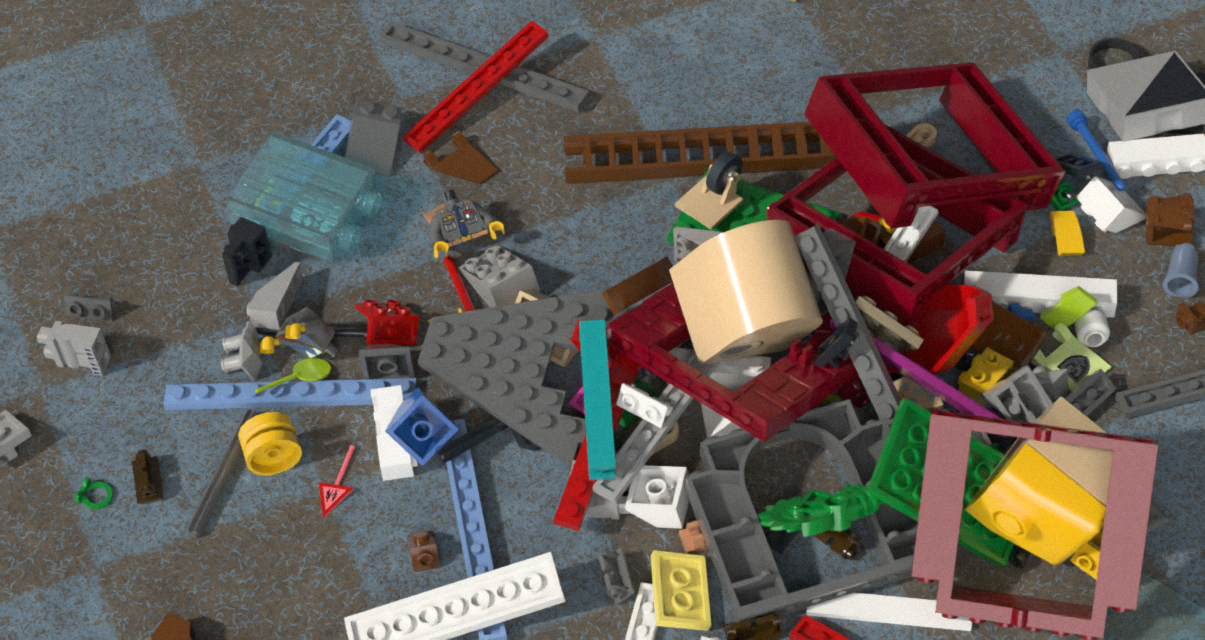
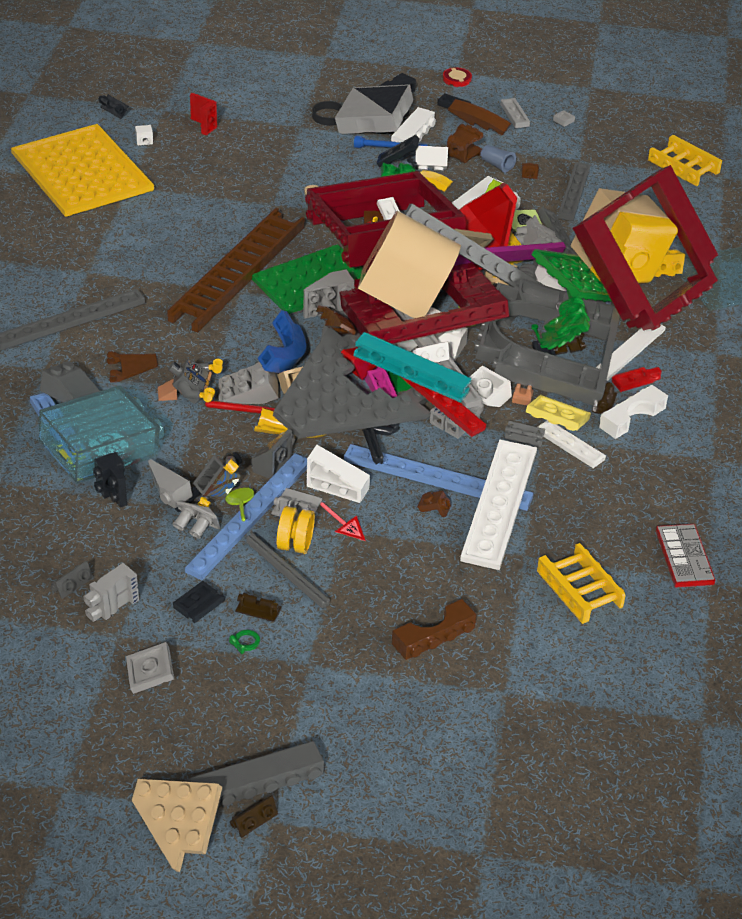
camera: 65 degrees left, 10 degrees down
(122, 424) = (198, 601): none -> black plate
(331, 425) = (297, 500): none -> light grey hinge
(389, 322) = (250, 440): red bracket -> none
(420, 427) = (353, 449): blue slope -> none
(475, 87) = (82, 327): red plate -> none
(549, 281) = (294, 342): none -> blue arch
(715, 194) = (282, 275): tan plate -> none
(835, 344) = (472, 255): black plate -> none
(891, 176) = (342, 176): dark red door -> none

